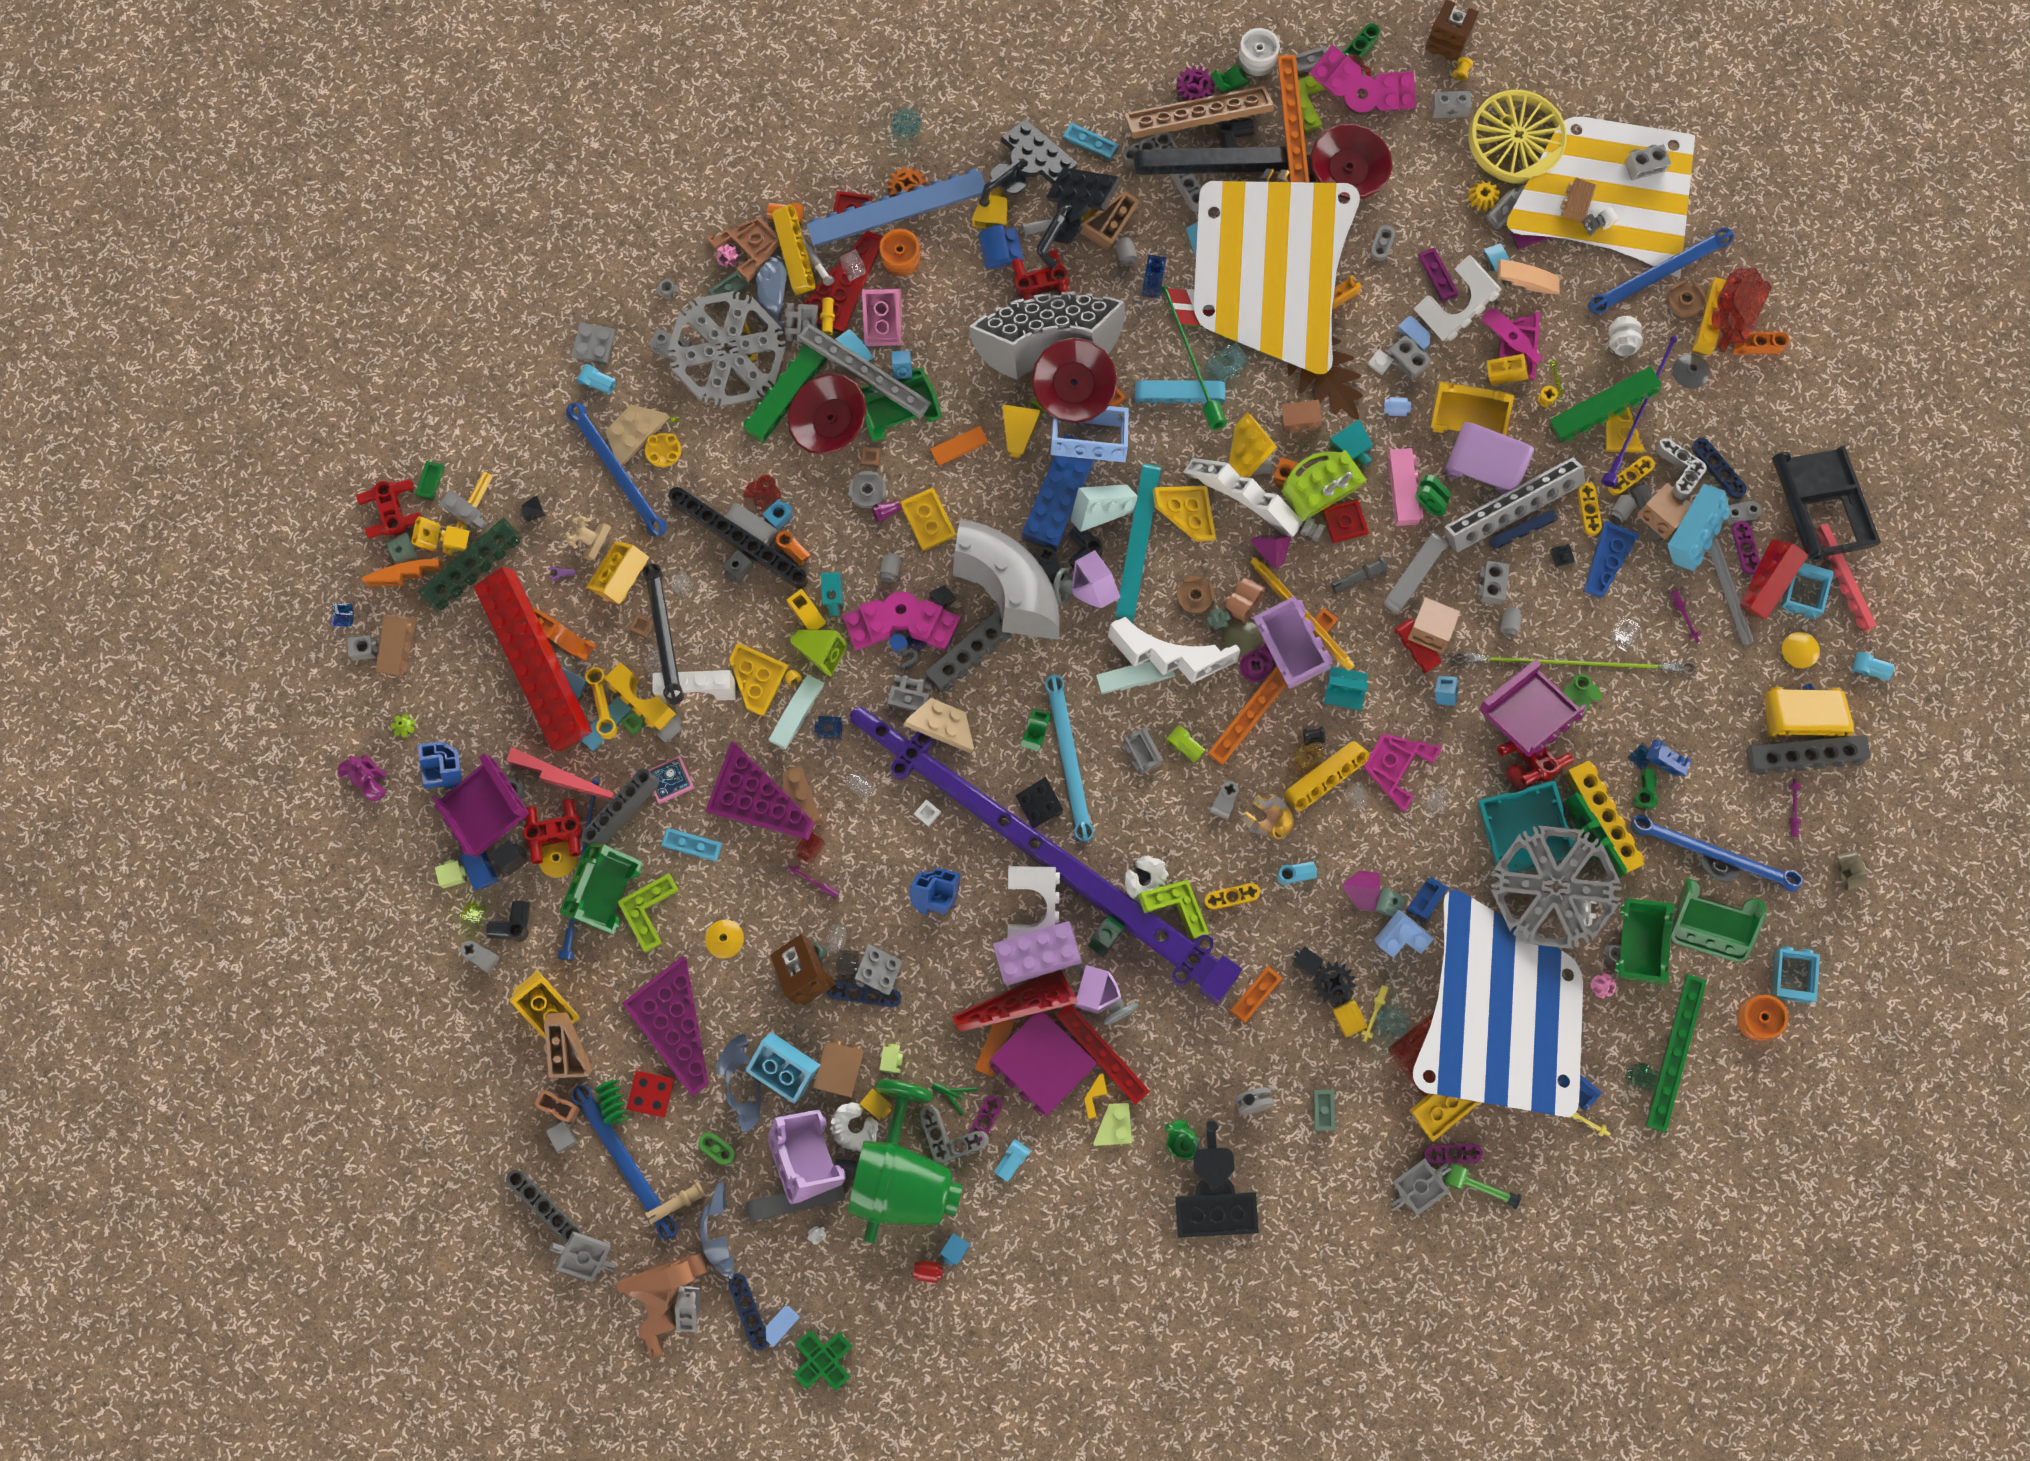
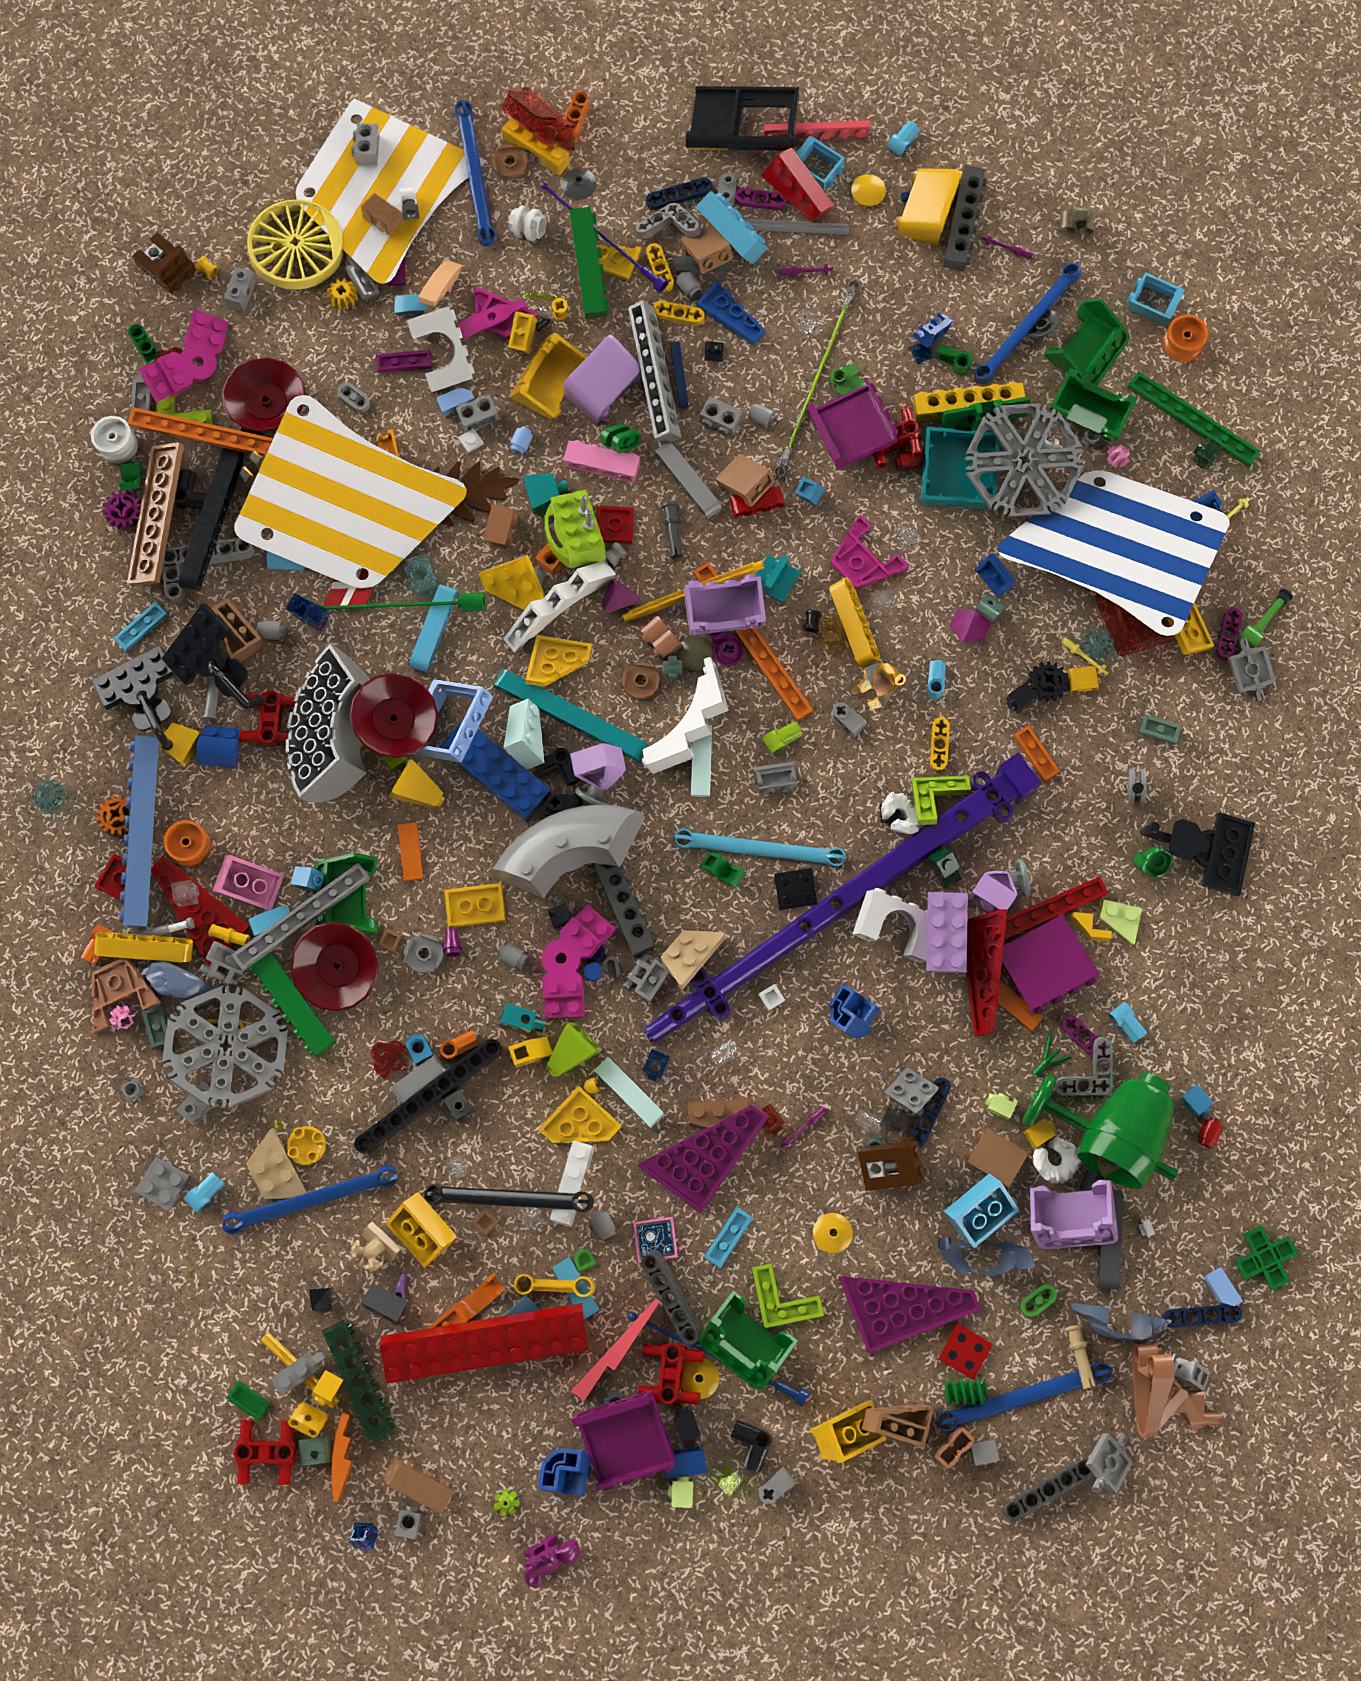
camera: 75 degrees left, 0 degrees up
(543, 563) = (384, 1303): none -> dark grey hinge
(626, 683) = (541, 1255): yellow arch -> none
(1400, 931) = (1021, 609): light blue brick -> none
(1534, 386) = (545, 317): none -> arm

